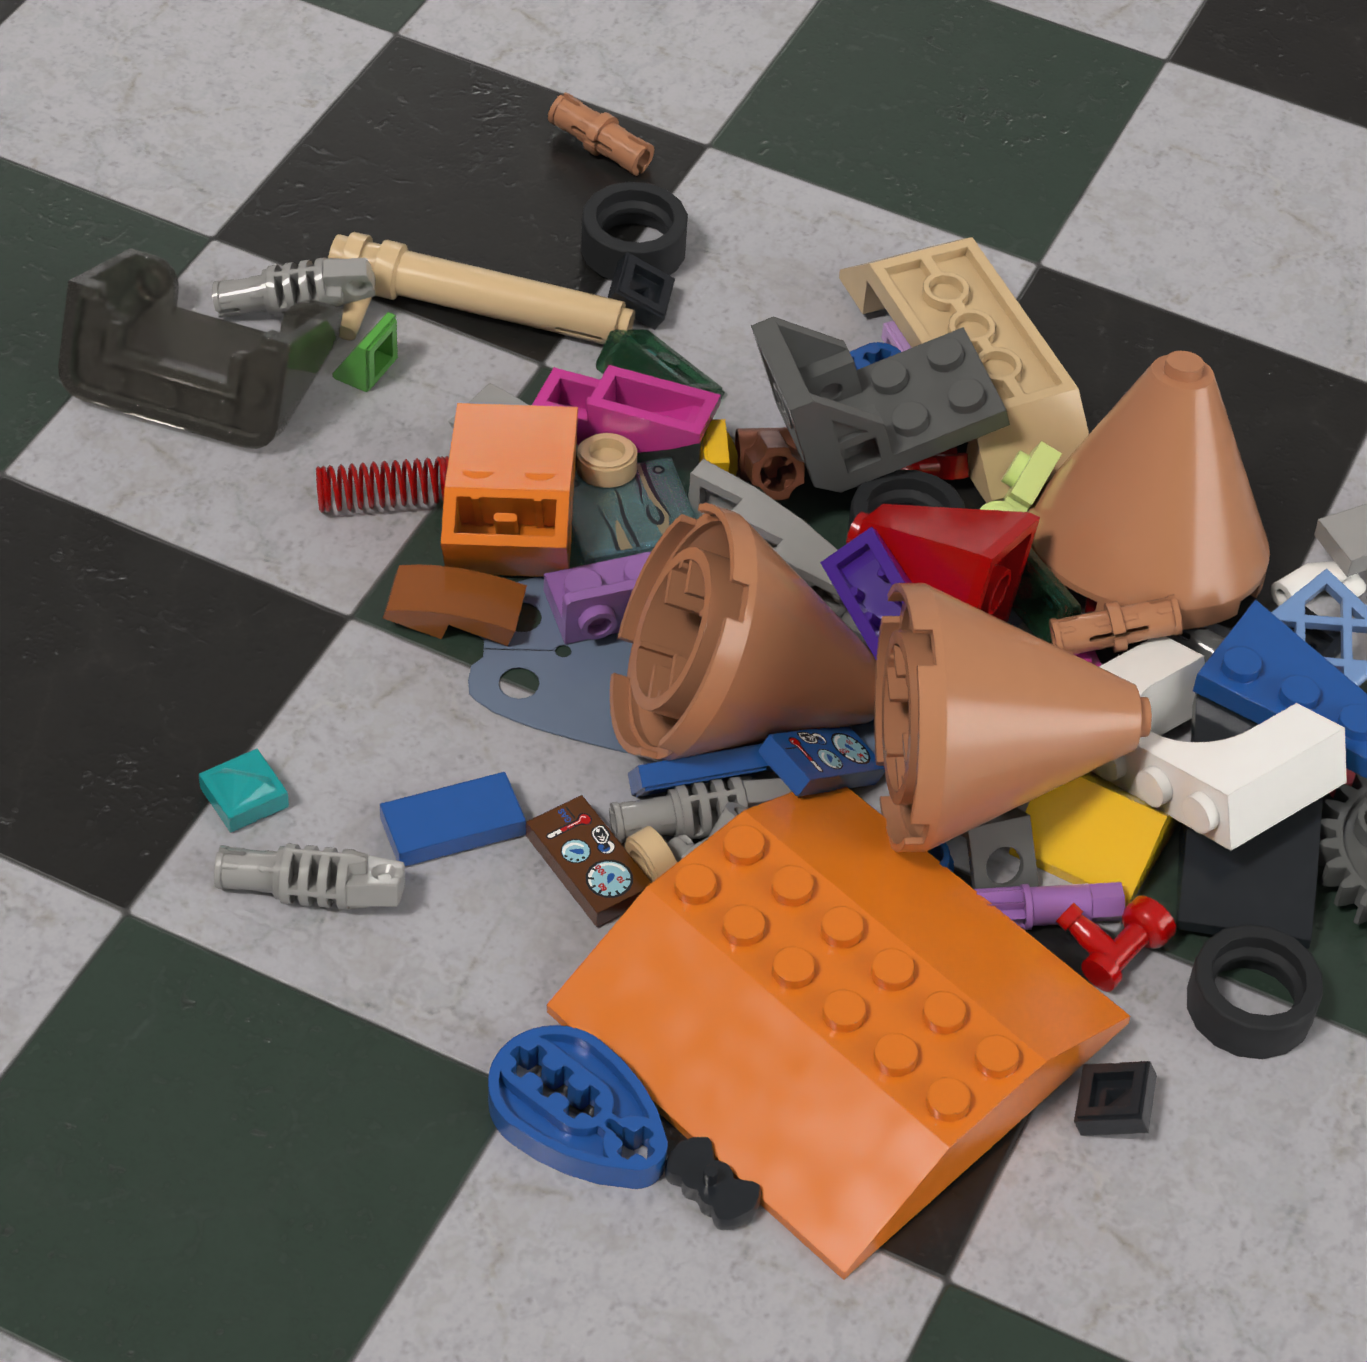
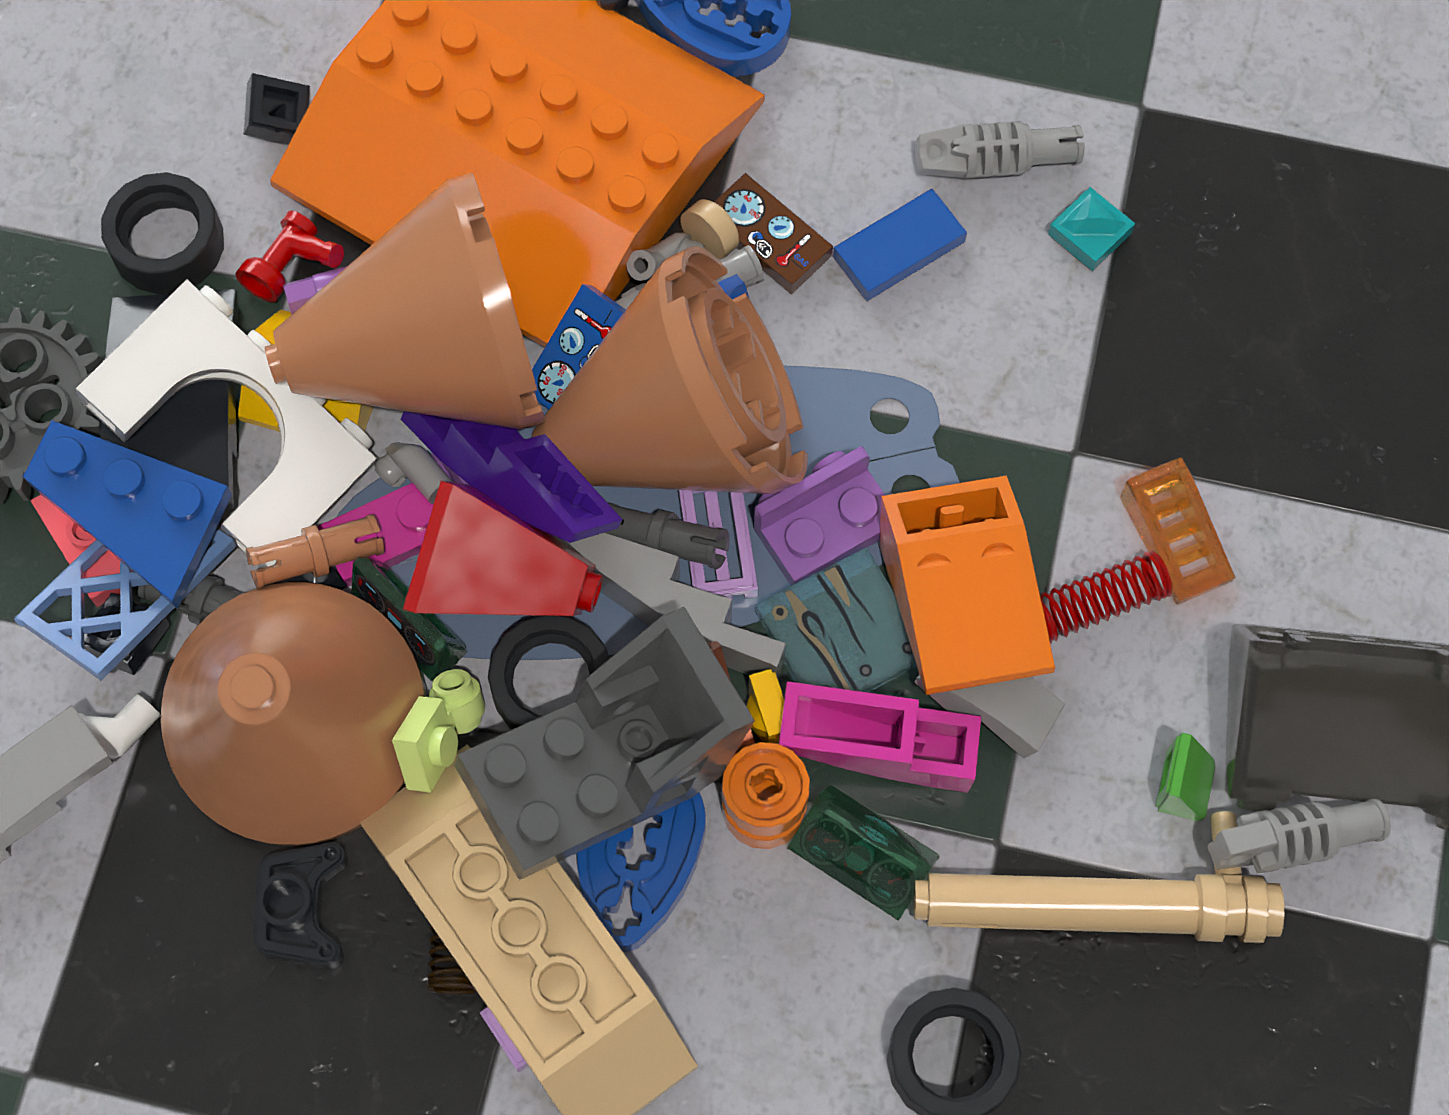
camera: 170 degrees right, 20 degrees up
(288, 549) = (1185, 499): none -> clear orange slope
(440, 596) = (978, 458): dark orange slope -> none
(607, 460) = (882, 670): tan tile -> none
(642, 289) = (918, 959): black tile -> none
(741, 380) = (765, 795): none -> orange wheel

